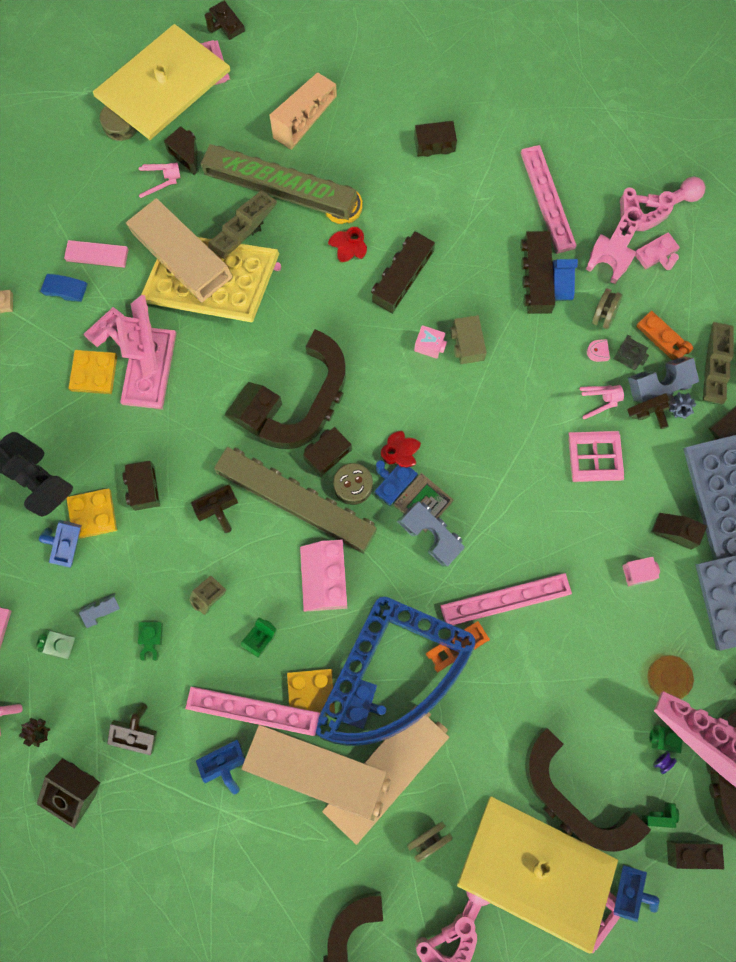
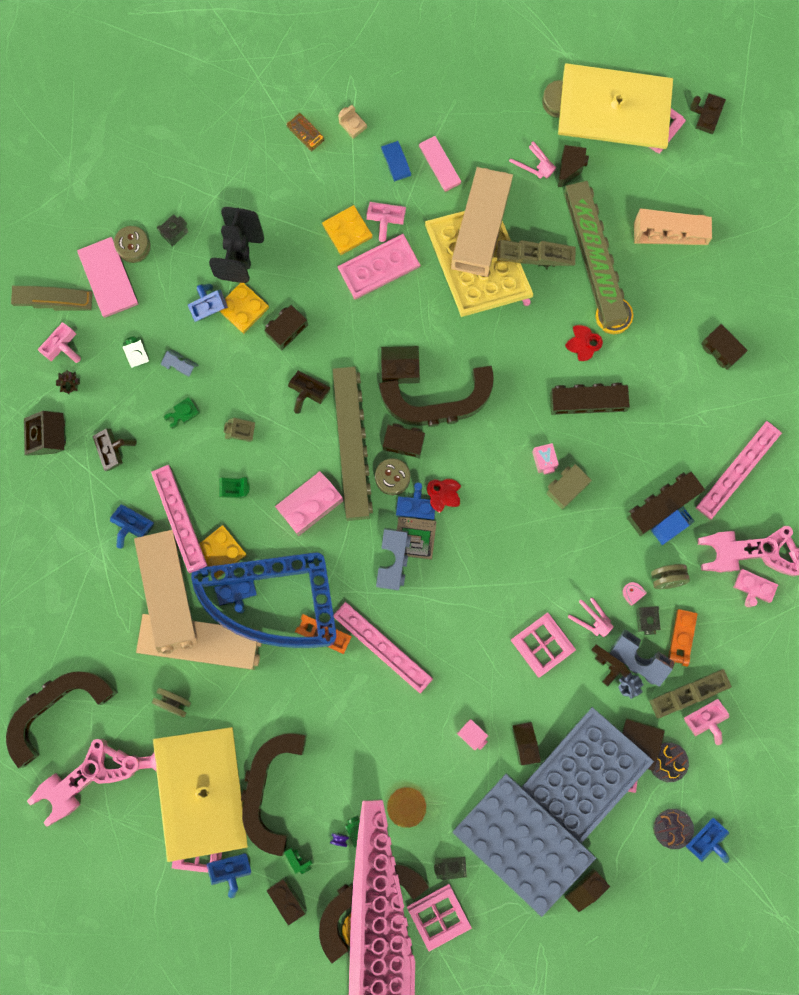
camera: 60 degrees right, 5 degrees up
(136, 337) = (392, 242): bright pink bracket -> none

